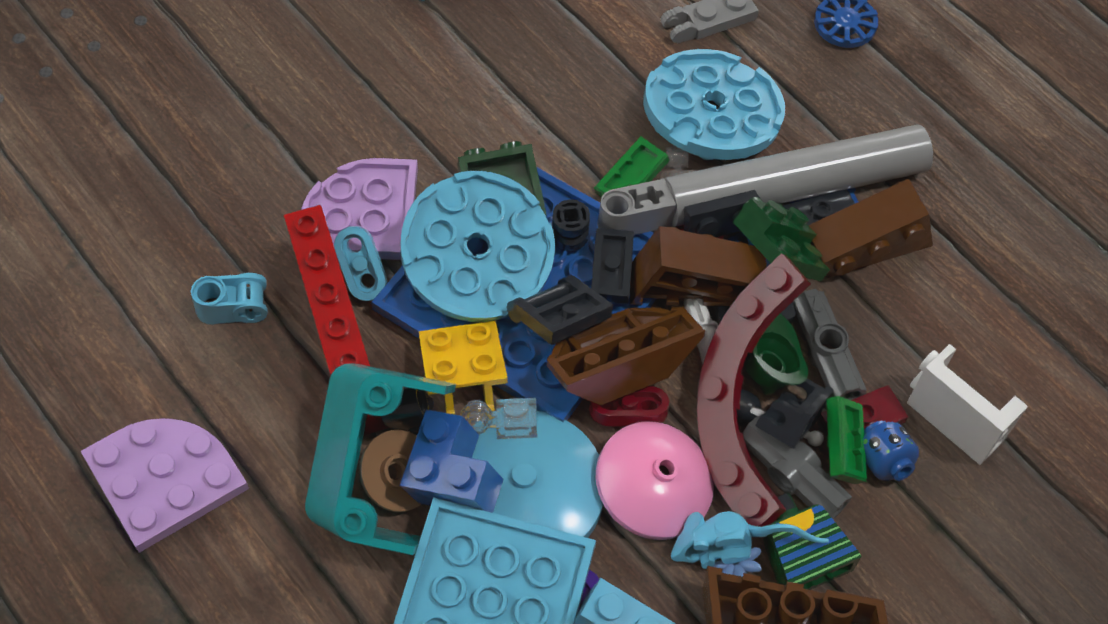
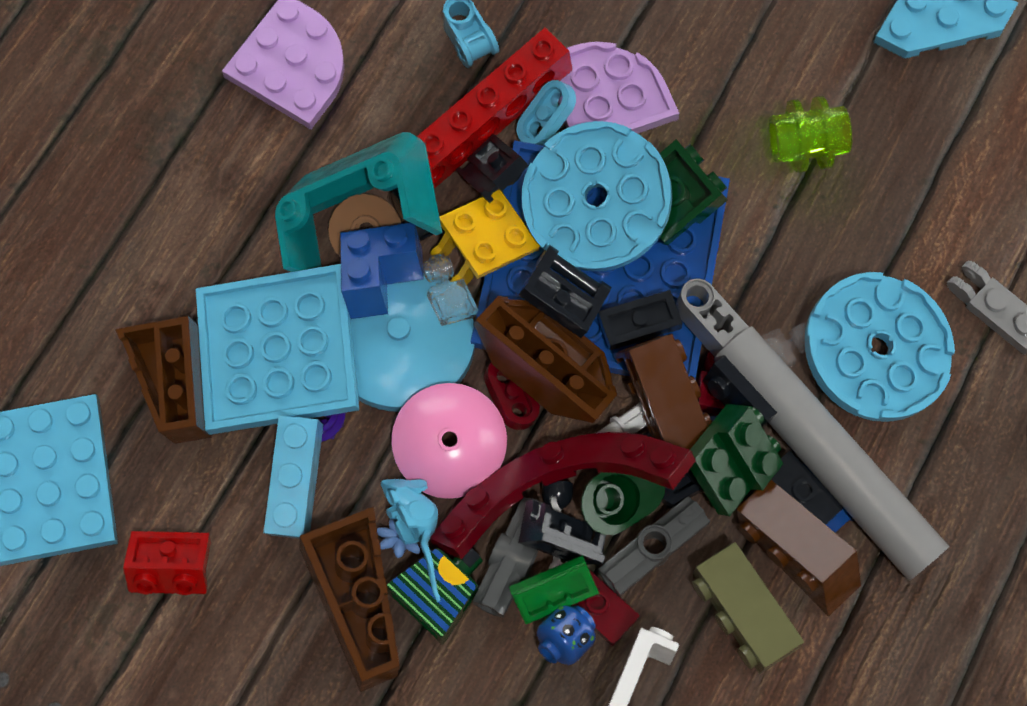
camera: 70 degrees right, 10 degrees up
(395, 327) = (492, 167): none -> black plate
(496, 68) = (810, 134): none -> clear neon green piece
(570, 224) = (662, 275): black wheel -> none
(635, 167) = (763, 303): green plate -> none
(912, 297) = (746, 609): none -> olive brick

